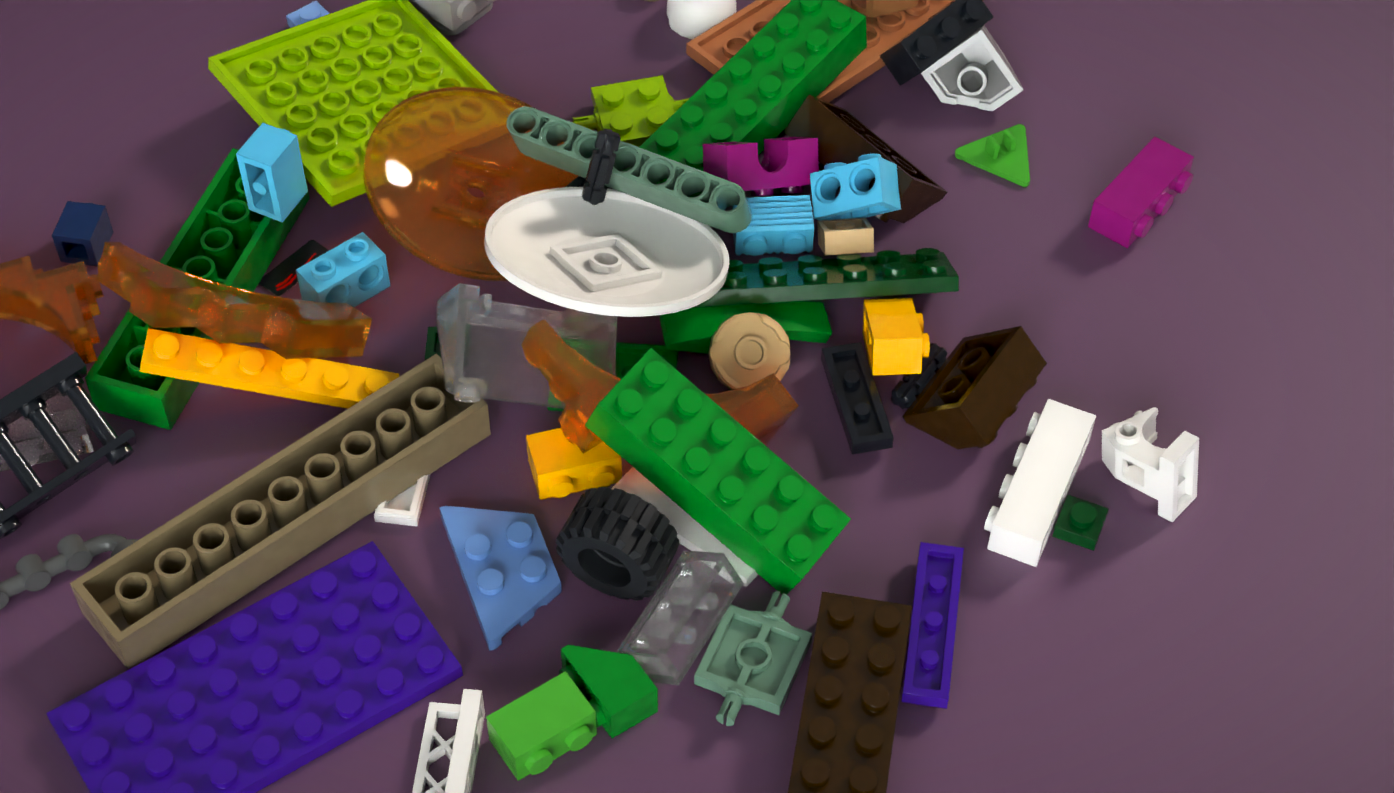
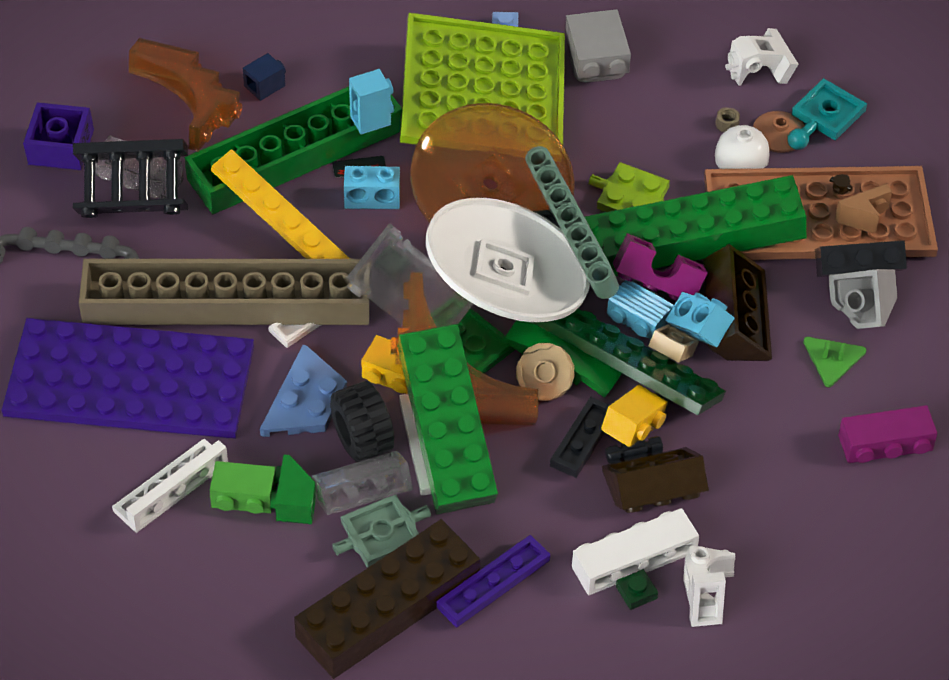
camera: 40 degrees right, 0 degrees up
(231, 314) = (278, 167): clear orange arch -> none
(600, 166) = (548, 209): black axle -> none

